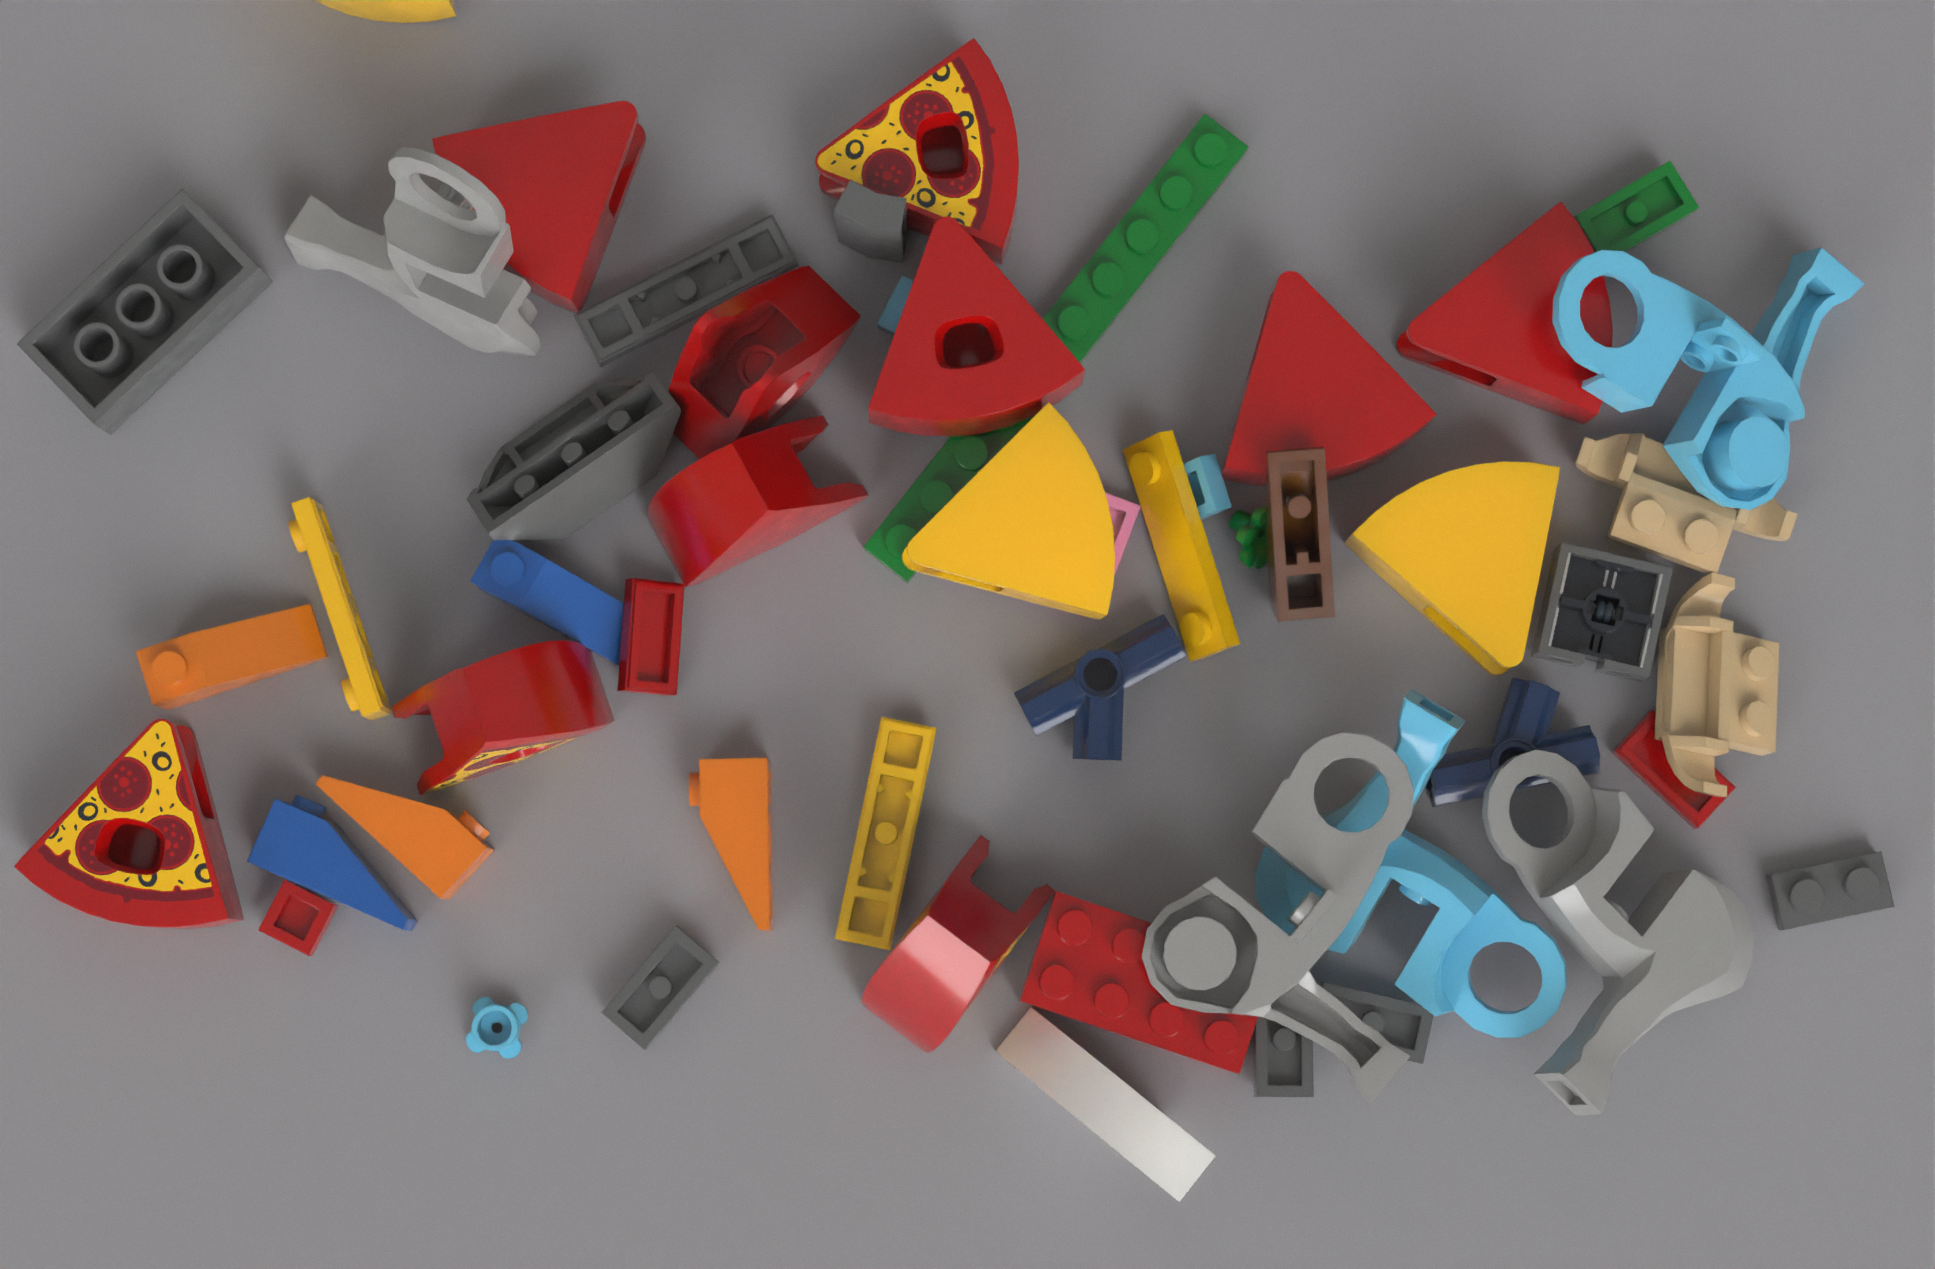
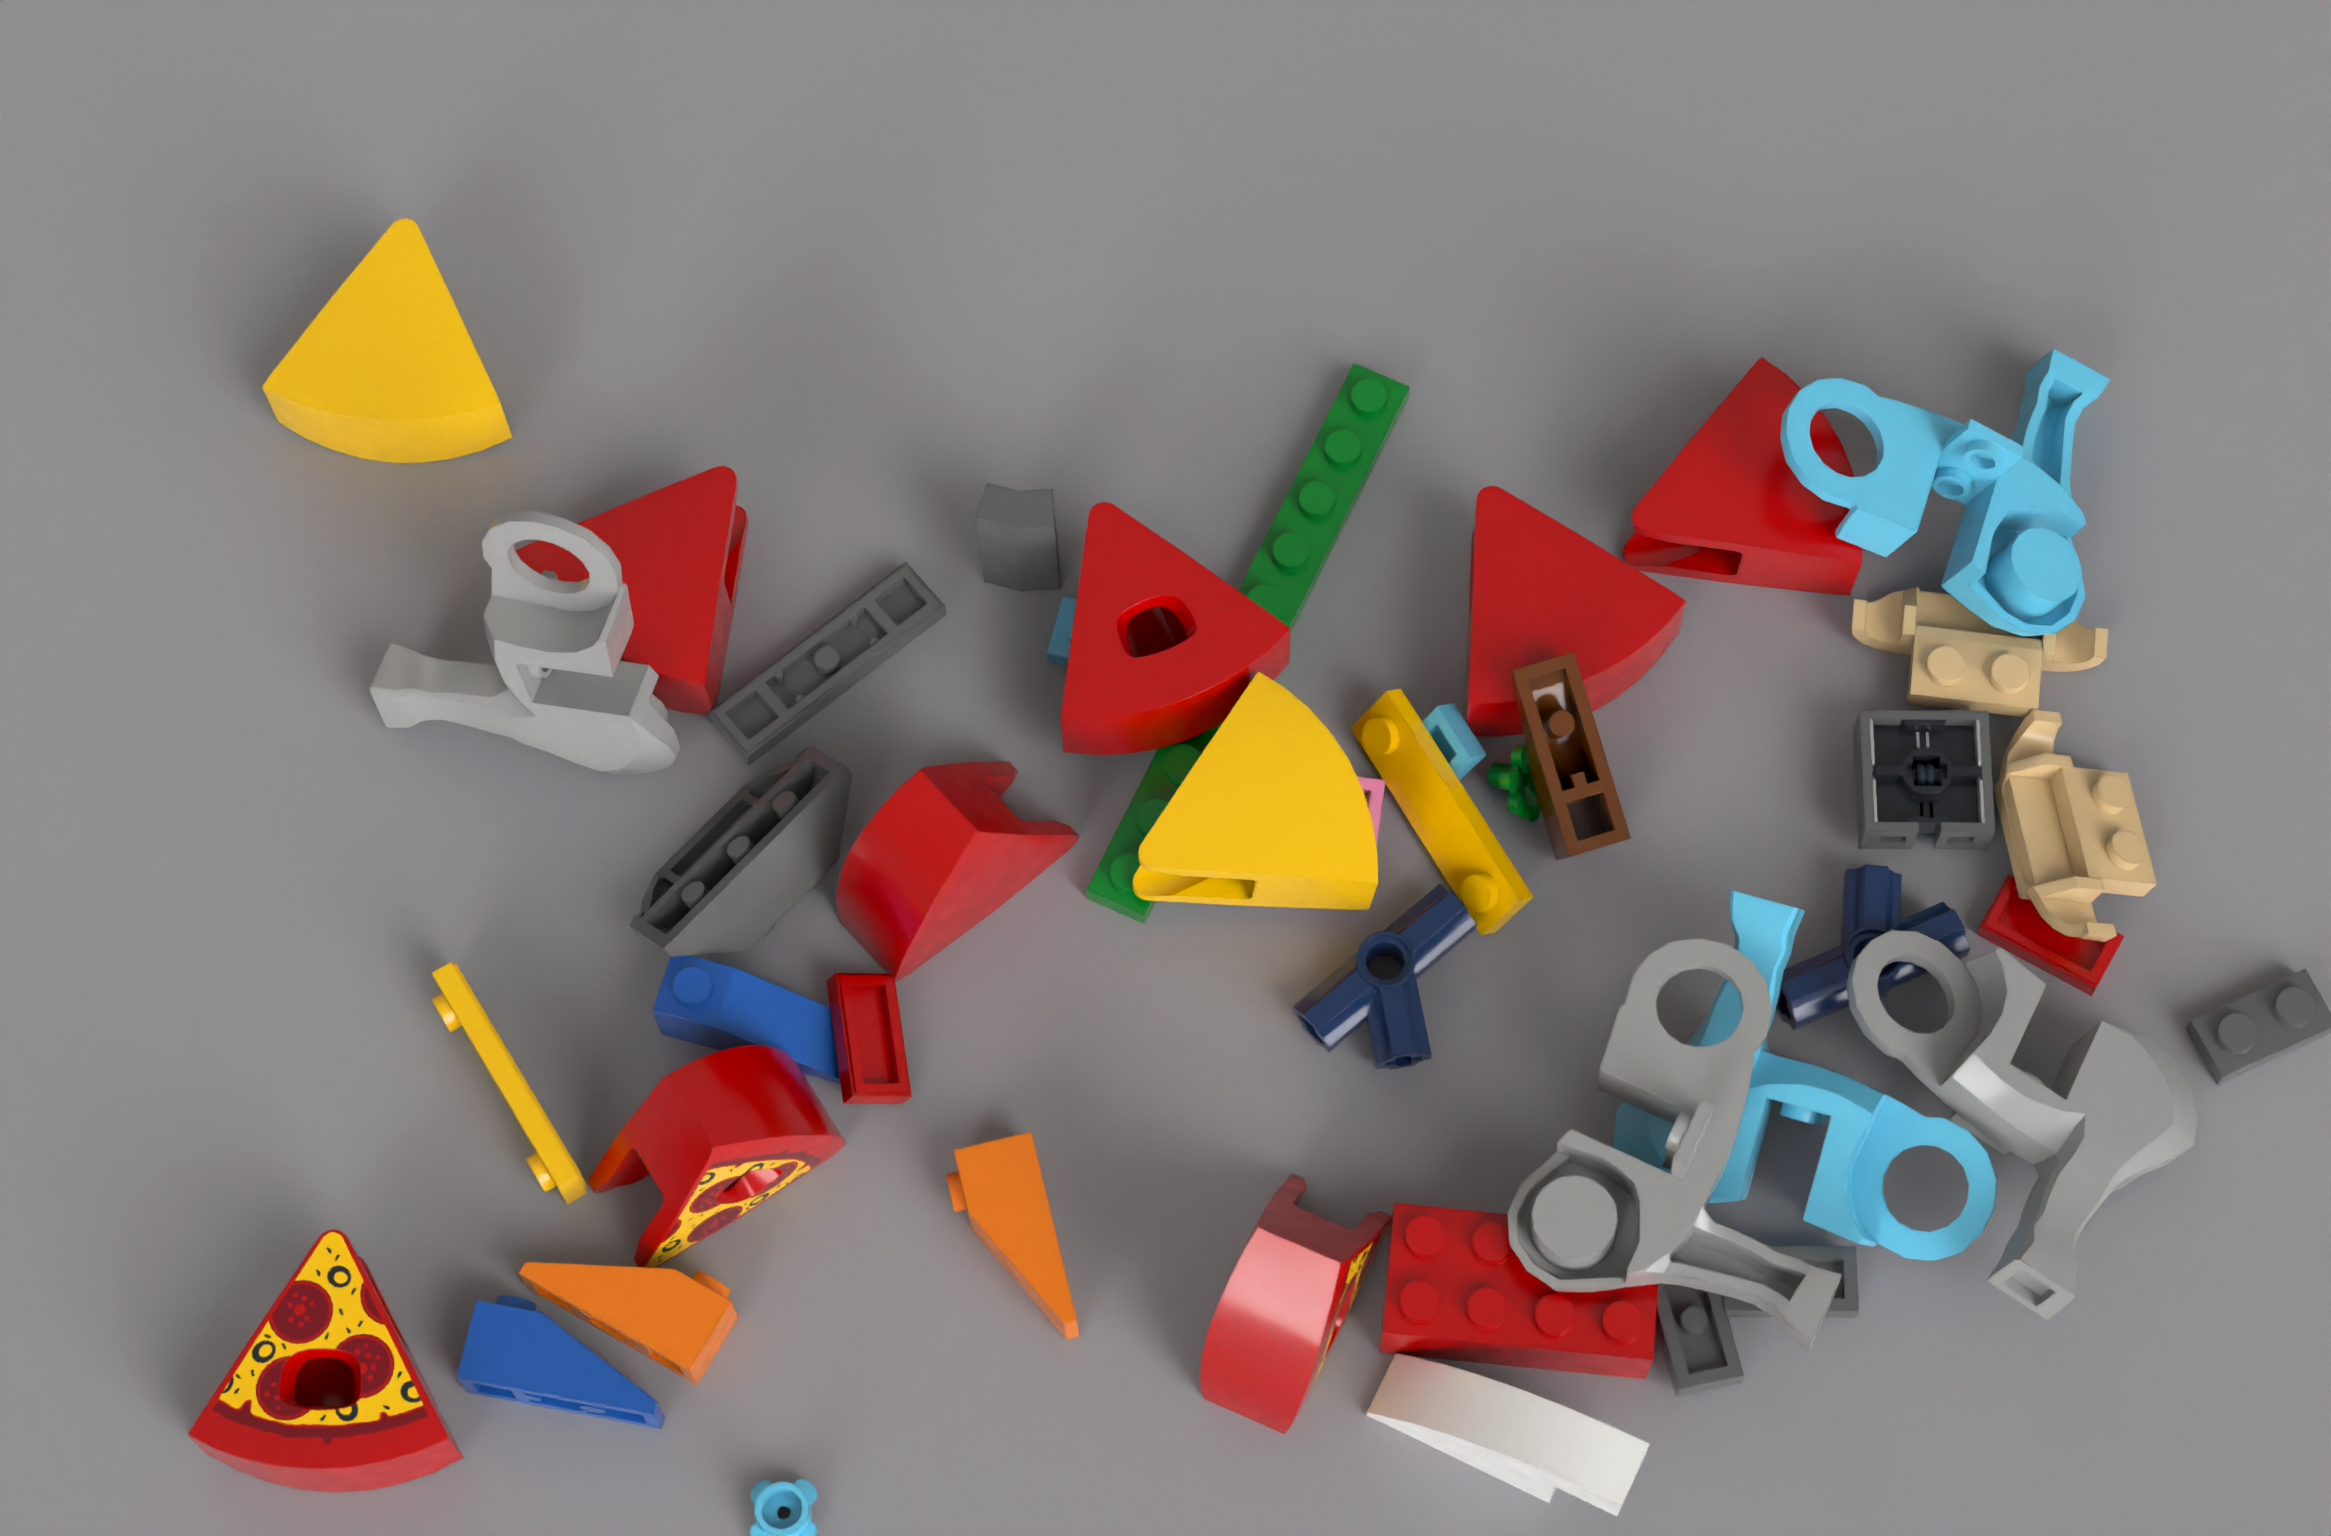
camera: 10 degrees left, 15 degrees down
(144, 312) = (227, 807): dark grey brick -> none
(230, 656) = (392, 1161): orange slope -> none
(298, 917) = (527, 1437): red plate -> none
(660, 987) = (964, 1423): dark grey plate -> none
(757, 358) = (921, 699): red piece -> none
(885, 833) = (1184, 1195): yellow plate -> none
(942, 147) = (1076, 431): piece -> none
(1467, 553) = (1756, 747): yellow piece -> none
(1638, 211) = (1858, 351): green plate -> none

